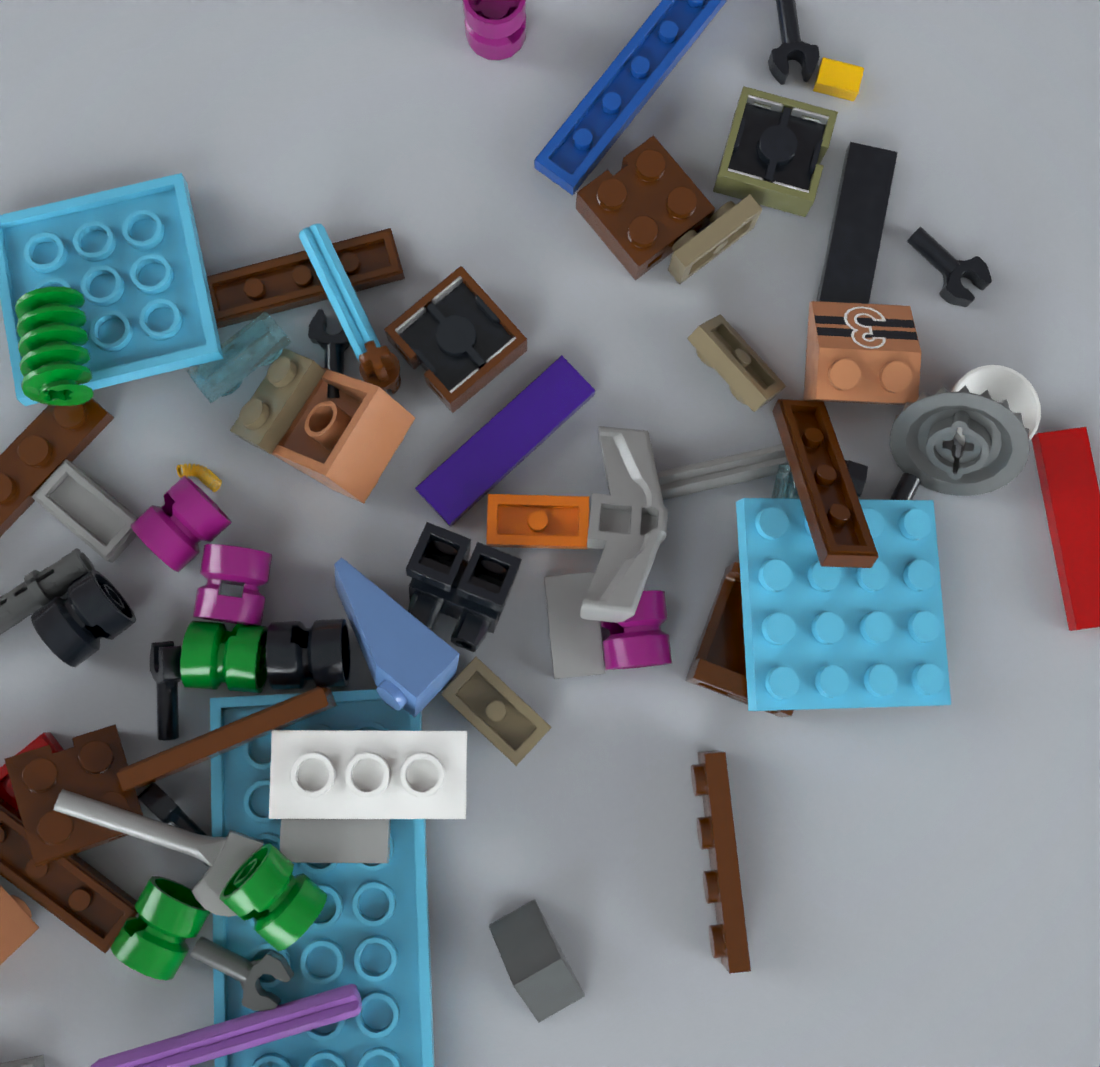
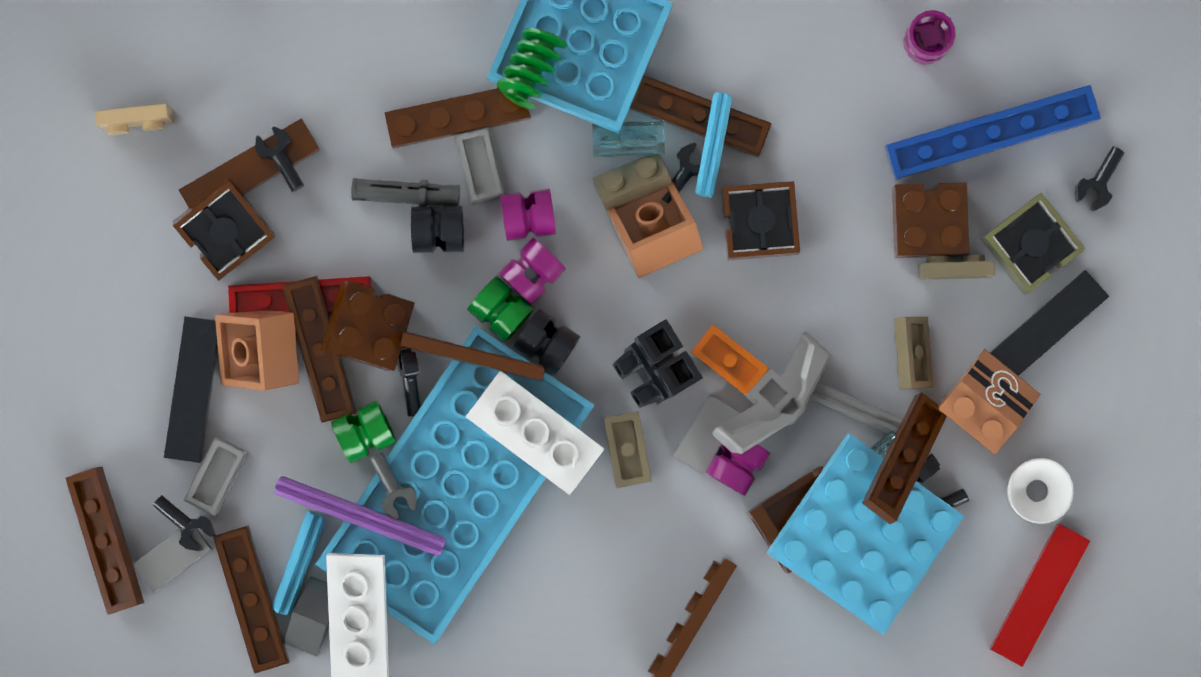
camera: 45 degrees right, 5 degrees up
(166, 672) = (463, 290): black bar -> none
(201, 475) = (559, 194): yellow leg -> none
(220, 853) = (428, 424): light grey piece -> none
(274, 897) = (440, 465): green wheel -> none
(335, 840) = (490, 454): light grey tile -> none
(380, 367) = (703, 208): reddish brown axle -> none
(400, 651) = (598, 376): medium blue slope -> none
(505, 441) = (746, 299): dark purple tile -> none
(535, 961) = (549, 602): dark grey slope -> none
(838, 79) = (1111, 224): yellow piece -> none
(951, 269) = (1087, 388): black bar -> none
(993, 446) = (983, 483): dark grey gear -> none

